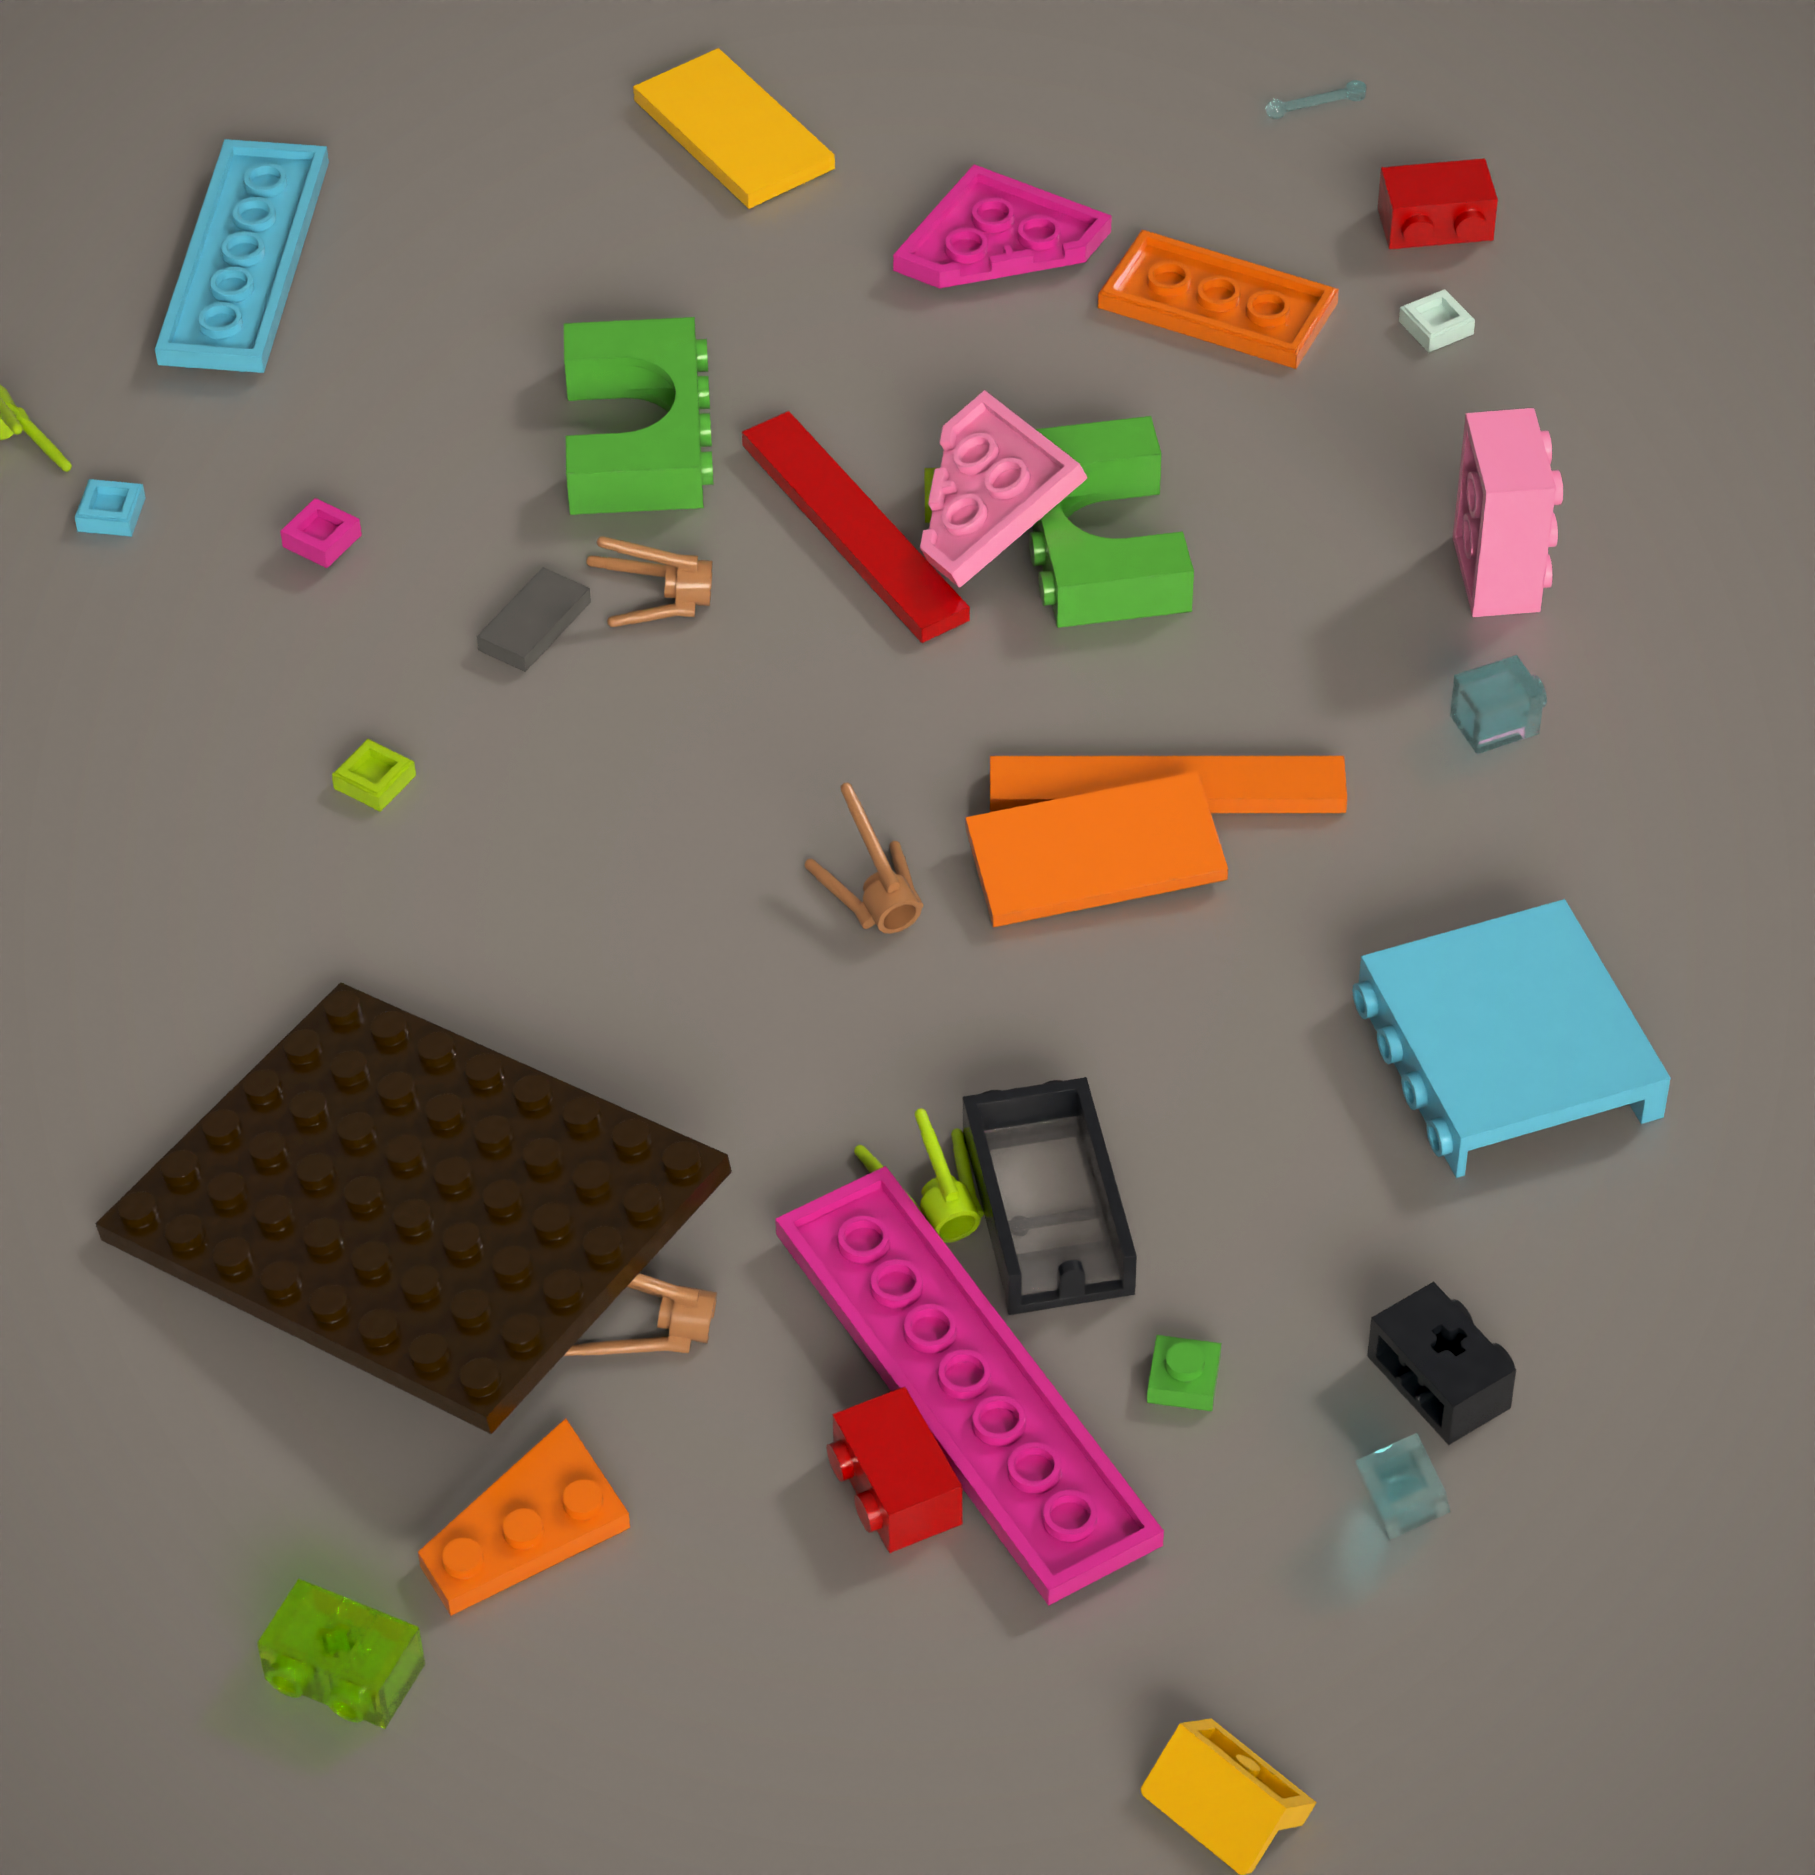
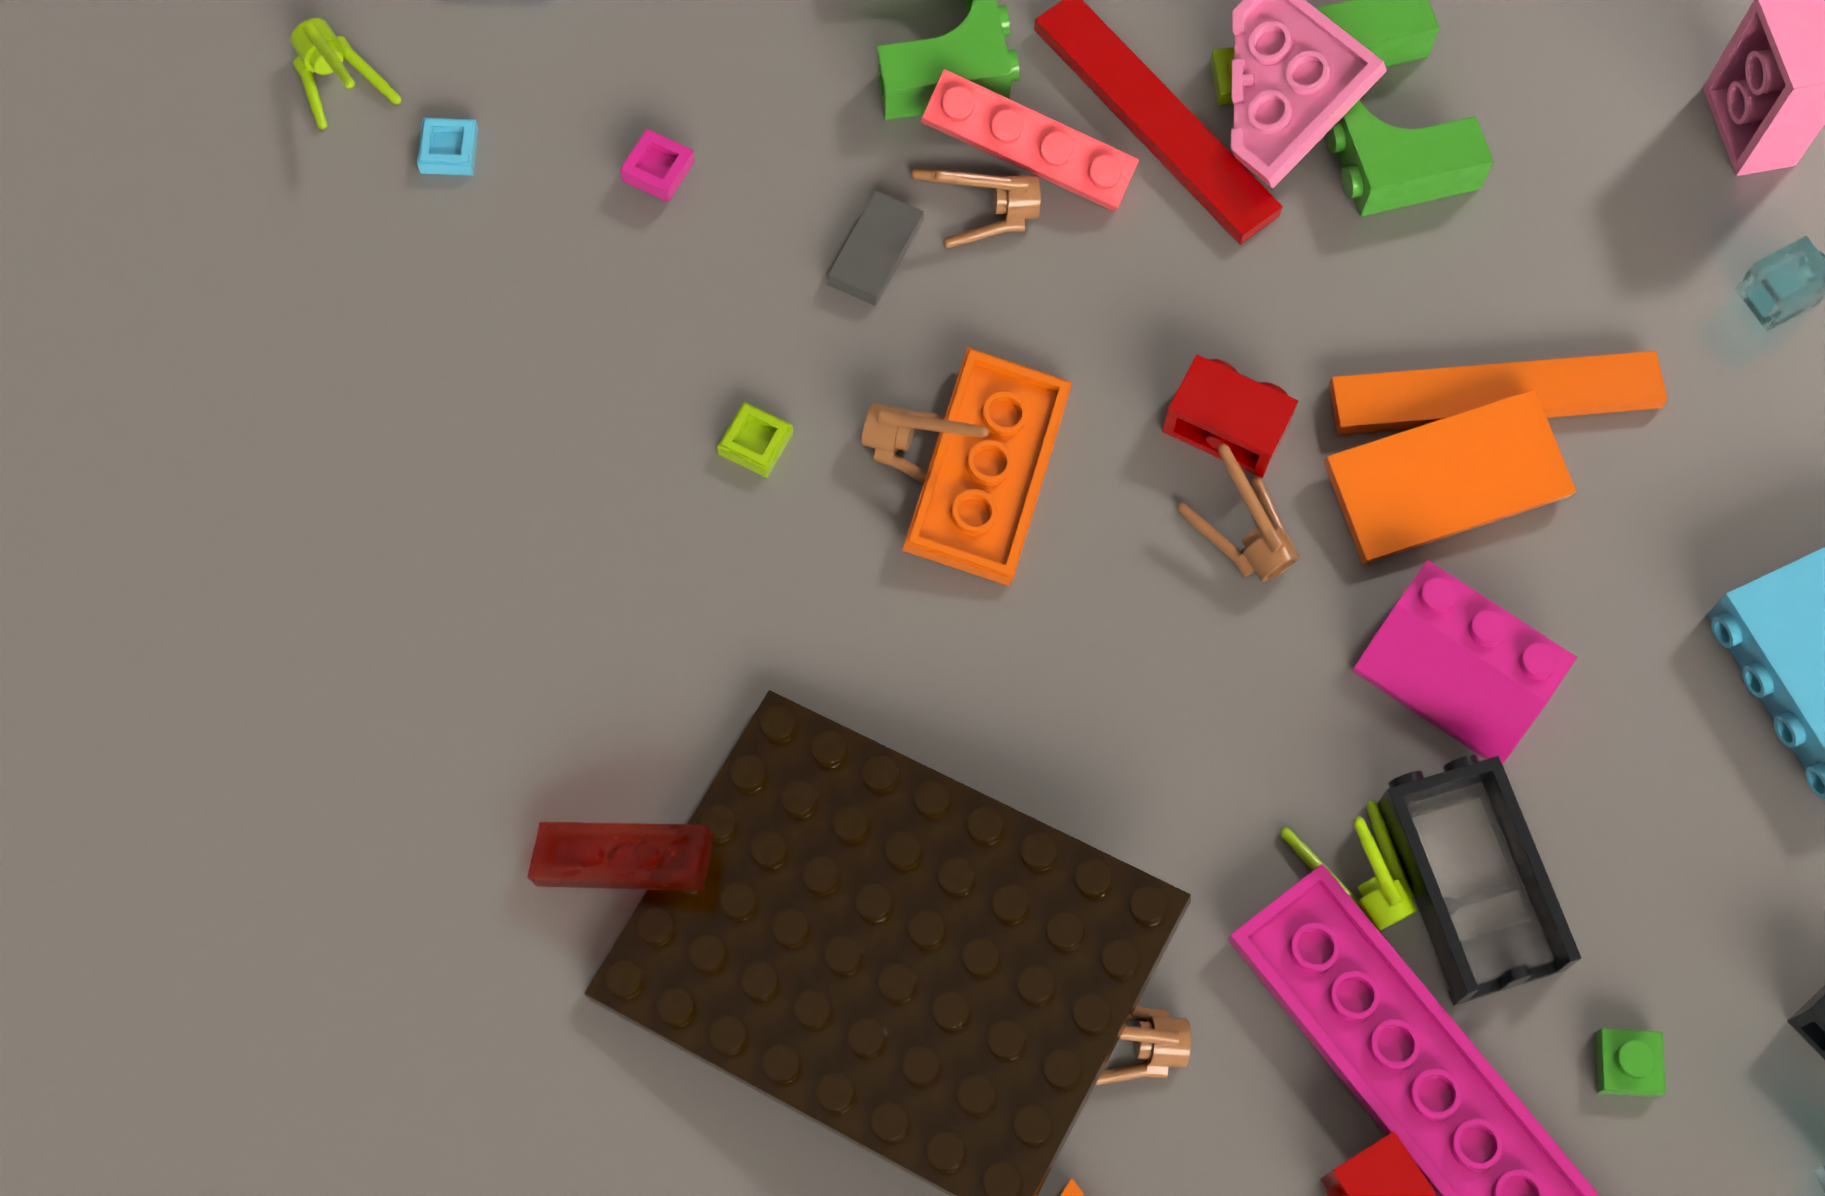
camera: 10 degrees left, 20 degrees up
(156, 1101) = (621, 856): none -> clear red plate
(519, 769) = (893, 429): none -> medium nougat plant
(610, 811) = (986, 488): none -> orange tile
(710, 529) = (1029, 140): none -> coral plate
(890, 779) = (1230, 409): none -> red brick
(1076, 1006) = (1464, 663): none -> dark pink slope

